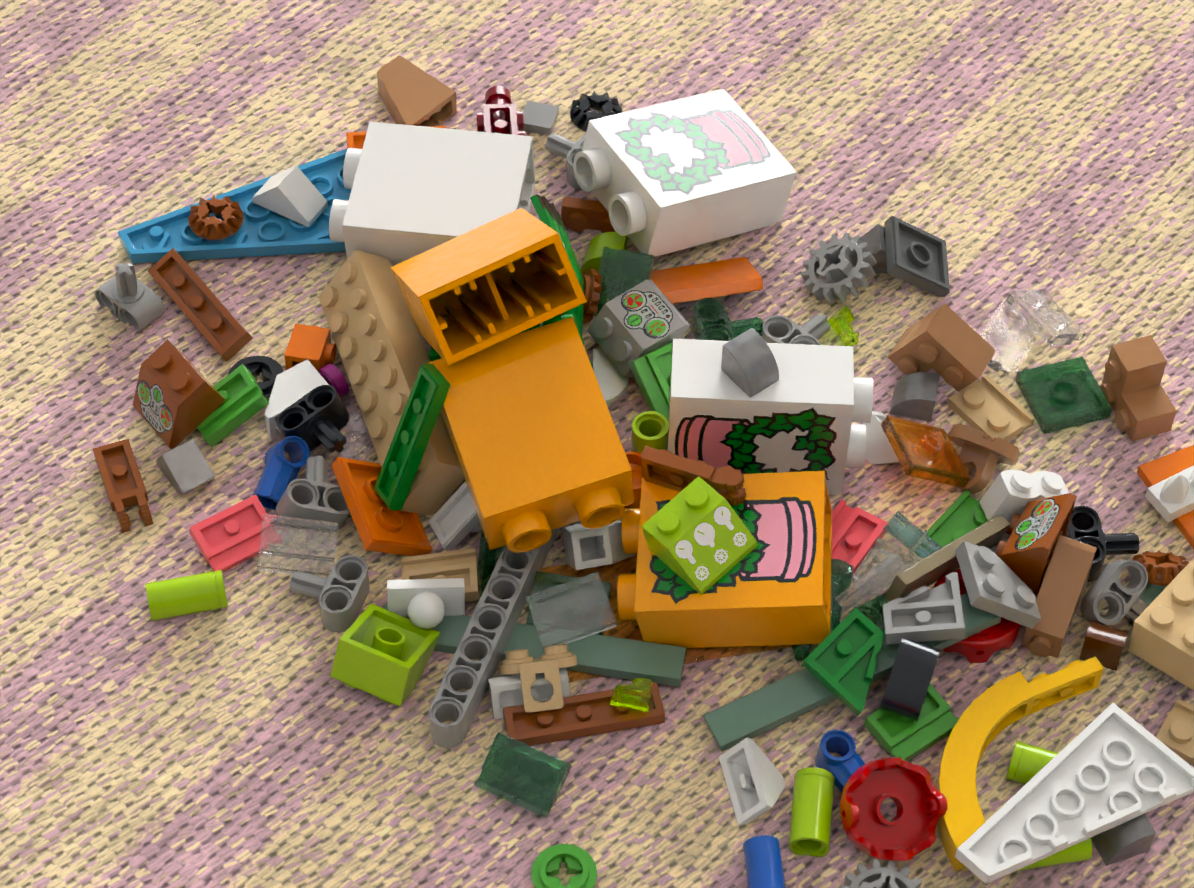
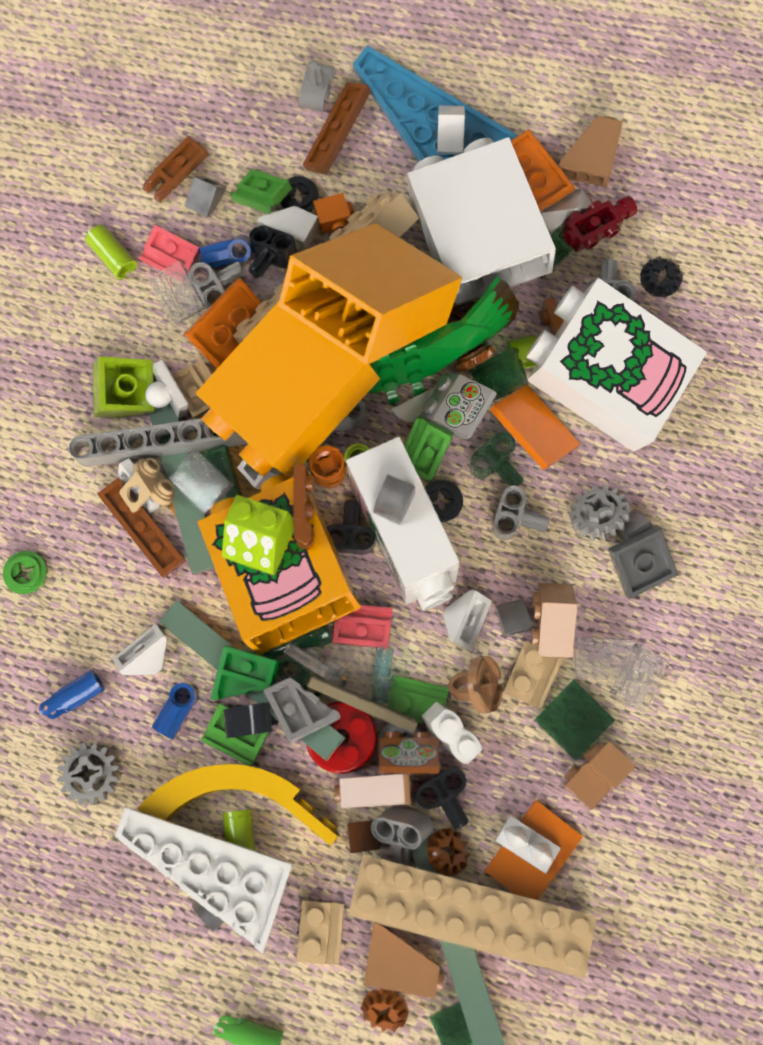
camera: 70 degrees right, 25 degrees up
(173, 394) = (252, 156): dark orange slope -> none
(211, 227) = (412, 103): dark orange gear -> none
(335, 378) = (318, 237): magenta tile -> none
(336, 591) = (156, 333): light grey beam -> none
(412, 436) = (251, 313): green tile -> none
(523, 775) = (78, 513): clear green plate -> none
(540, 117) = (632, 242): light grey tile -> none
(634, 695) = (158, 551): clear neon green tile -> none
(811, 812) = (134, 700): lime pin -> none
(841, 324) = (551, 539): clear neon green tile -> none
(917, 805) = (135, 759): red plate -> none
(925, 452) = (454, 646): clear orange plate -> none
(995, 586) = (346, 746): light grey plate -> none

